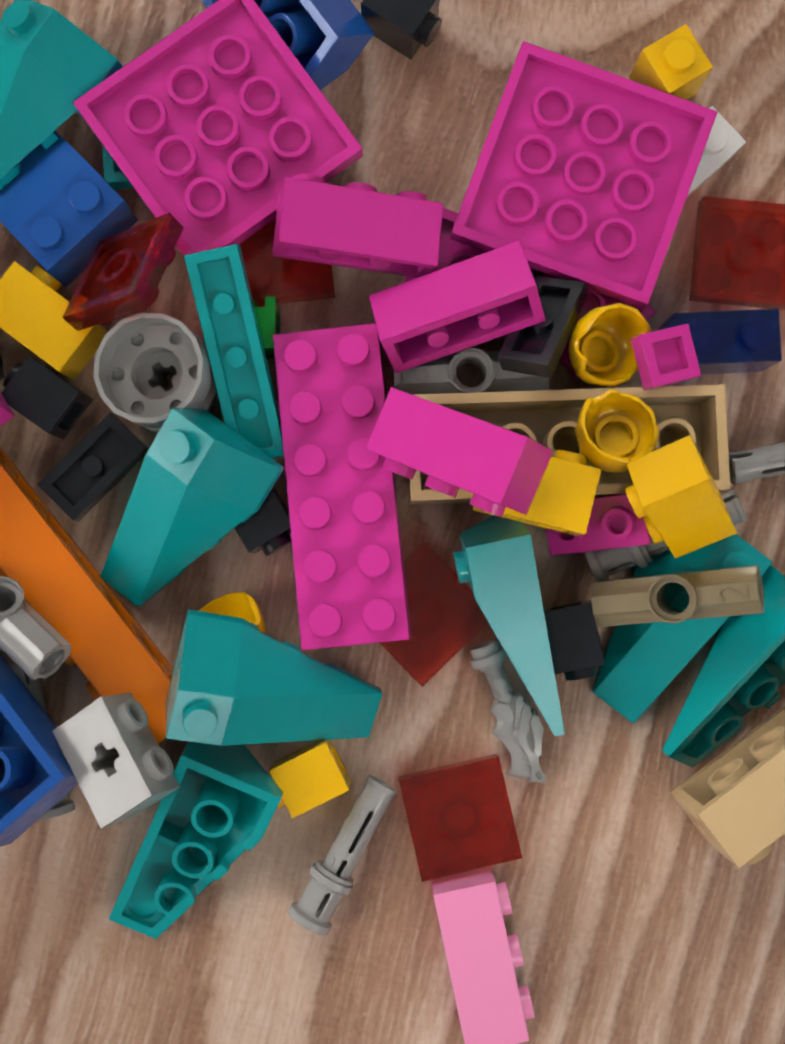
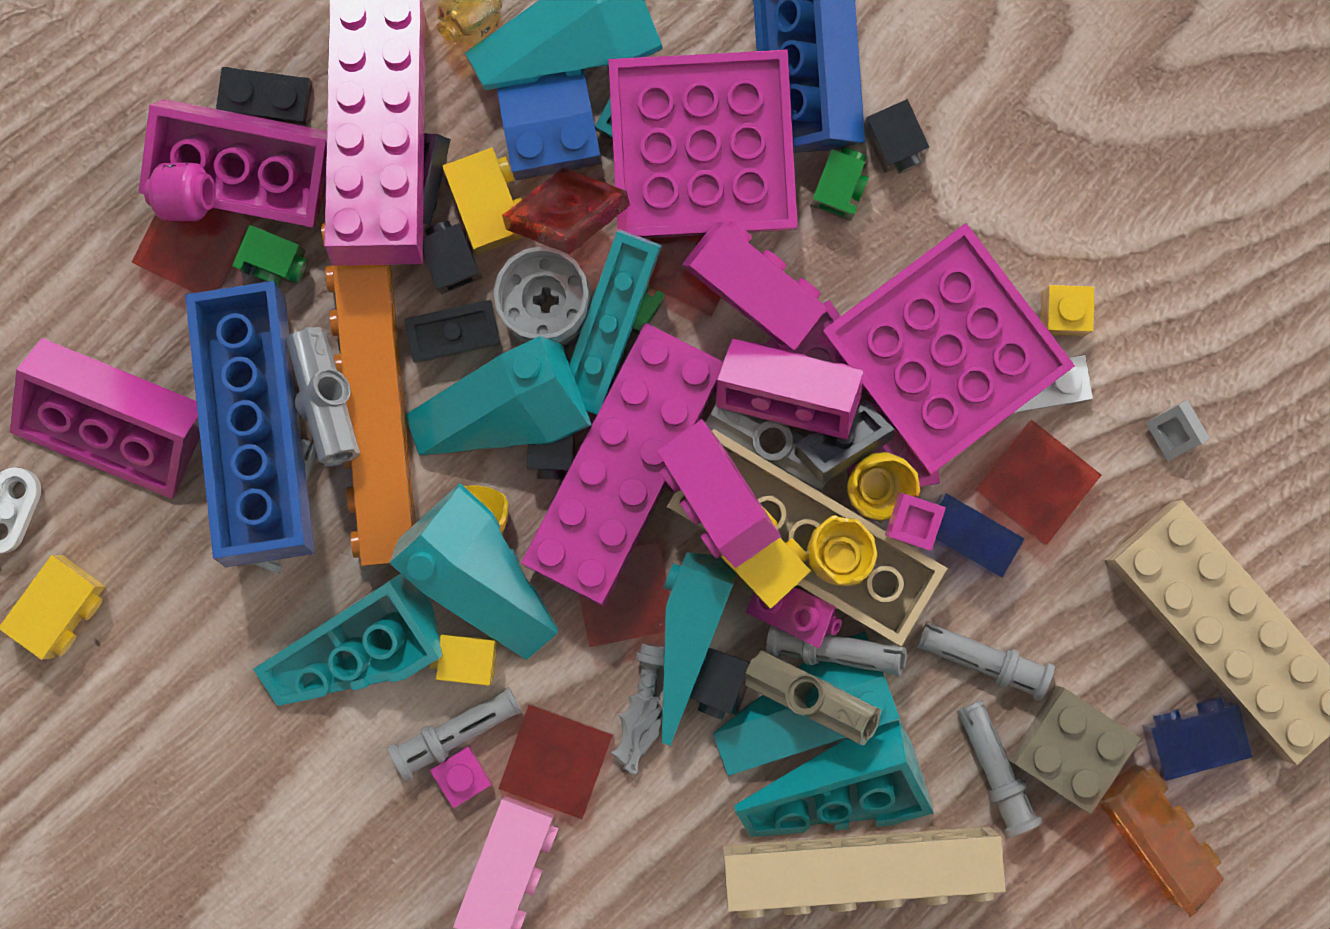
camera: 40 degrees right, 0 degrees up
(116, 758) = (343, 555): light grey brick -> none
(377, 90) = (841, 183): none -> green brick
(378, 892) = (461, 776): none -> dark pink plate
(678, 498) = (854, 627): yellow brick -> none

